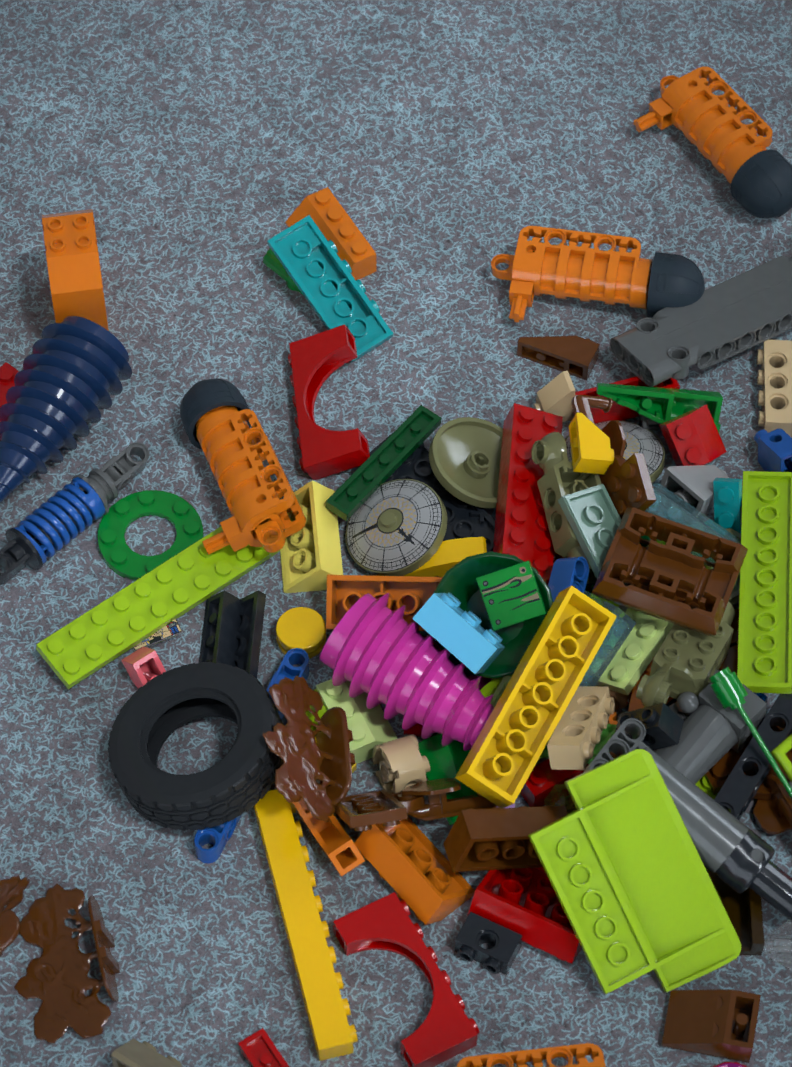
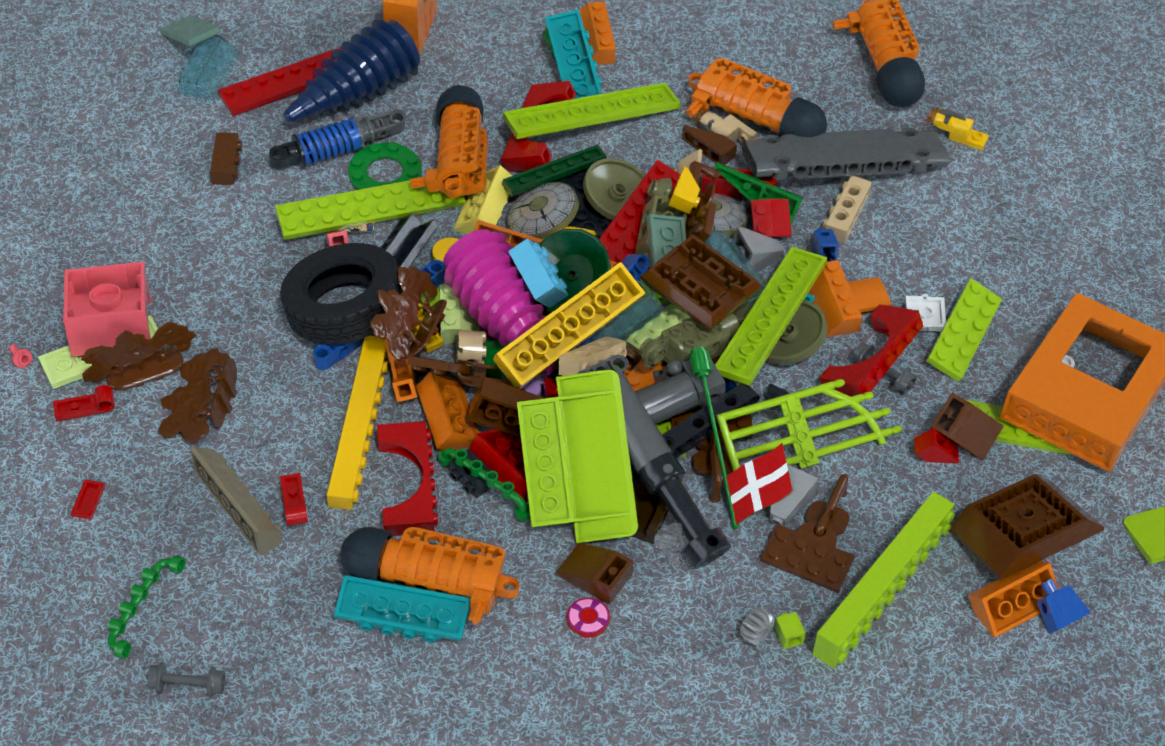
camera: 20 degrees right, 5 degrees down
(387, 357) = (591, 110): none -> lime plate
(443, 932) = (522, 510): none -> green bar
(511, 595) = (583, 260): green tile -> none
(574, 321) = (729, 126): none -> tan plate
(661, 725) = (642, 372): black brick -> none
(728, 503) = (771, 260): teal plate -> none

